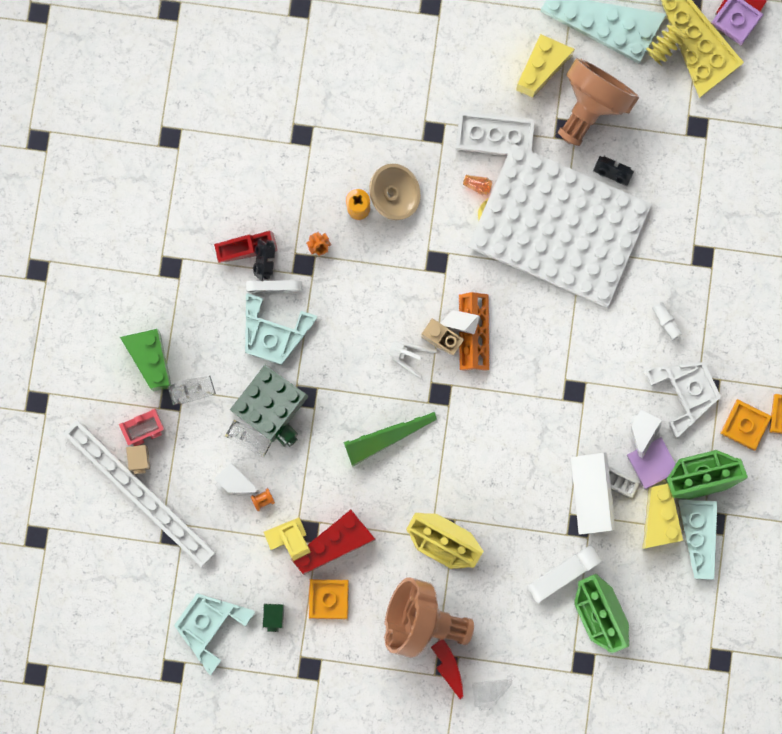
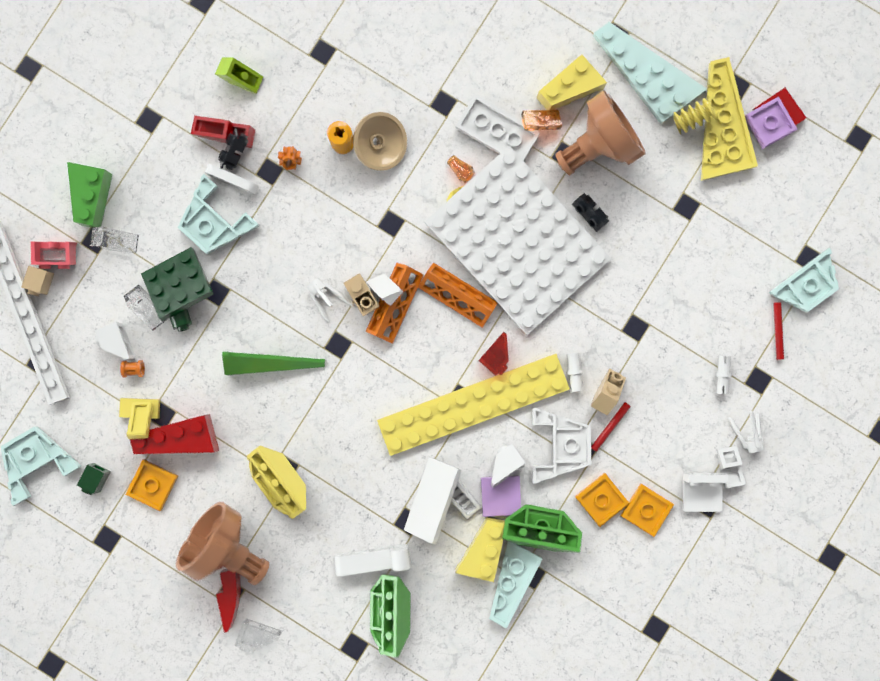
camera: 20 degrees right, 5 degrees up
(236, 189) = (239, 74): none -> lime slope
(528, 294) = (459, 291): none -> orange fence
(530, 107) = (541, 119): none -> clear orange plate
(588, 391) = (473, 404): none -> light yellow plate
(589, 338) = (496, 356): none -> clear red slope
(705, 324) = (608, 392): none -> tan slope
(722, 355) = (610, 427): none -> red bar

